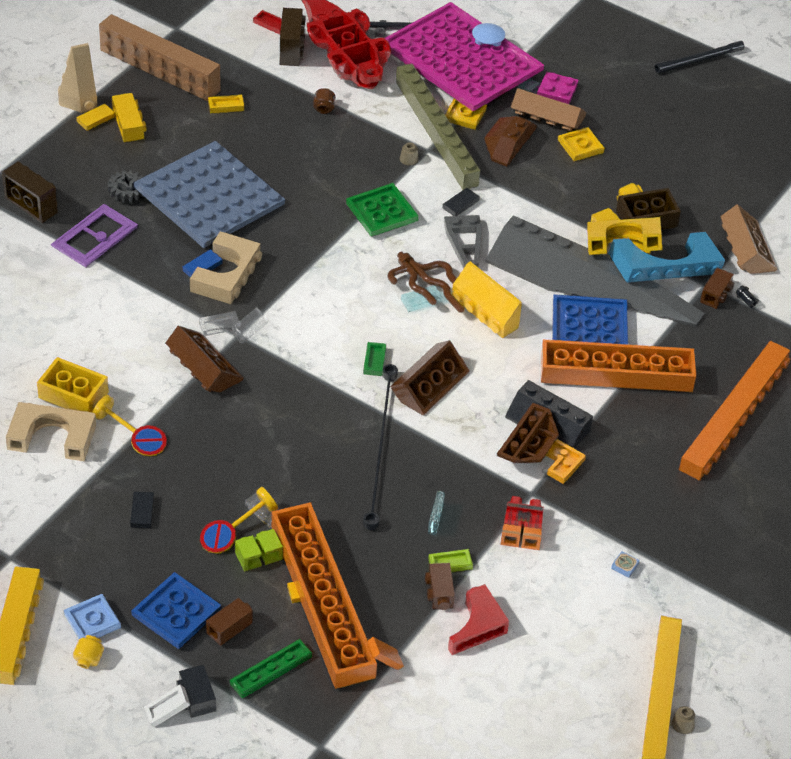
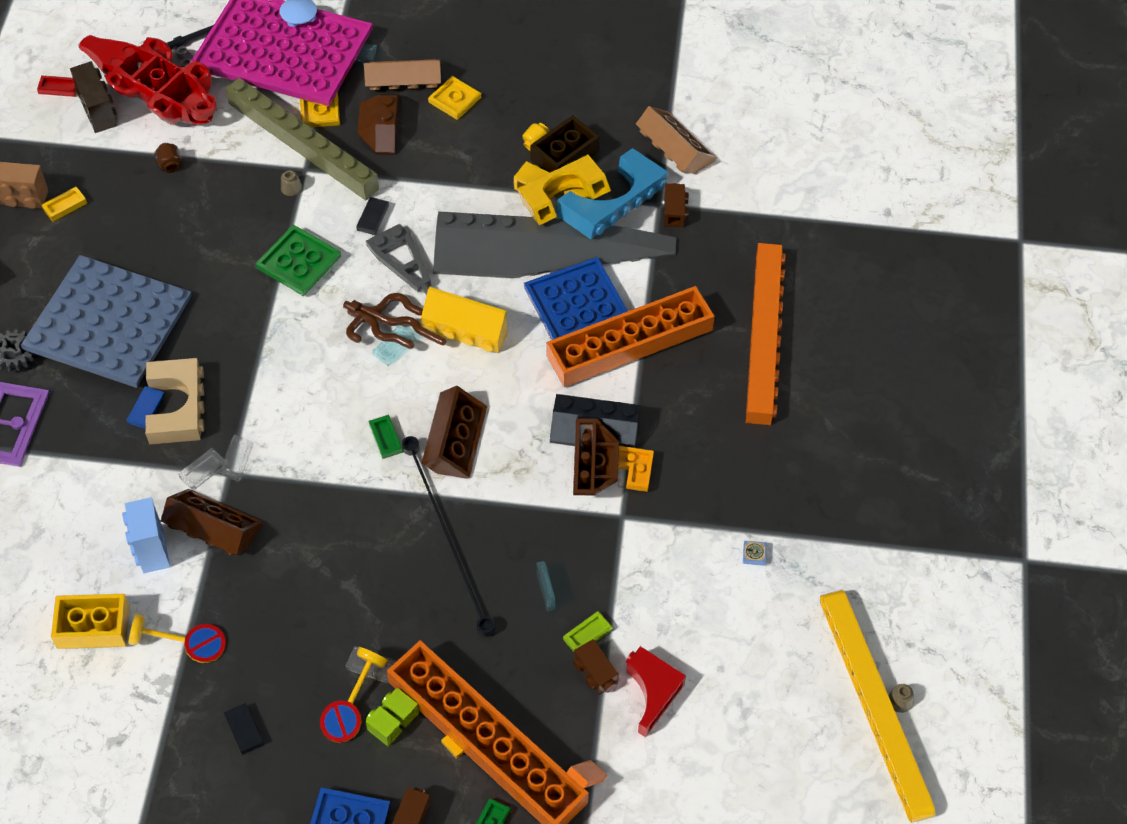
camera: 25 degrees left, 10 degrees up
(32, 417) = (63, 679): tan arch -> none
(147, 344) = (145, 535): none -> light blue brick
(525, 517) = (635, 556): hips -> none
(558, 87) = (397, 43): dark pink plate -> none
(744, 293) = (706, 201): black pin -> none

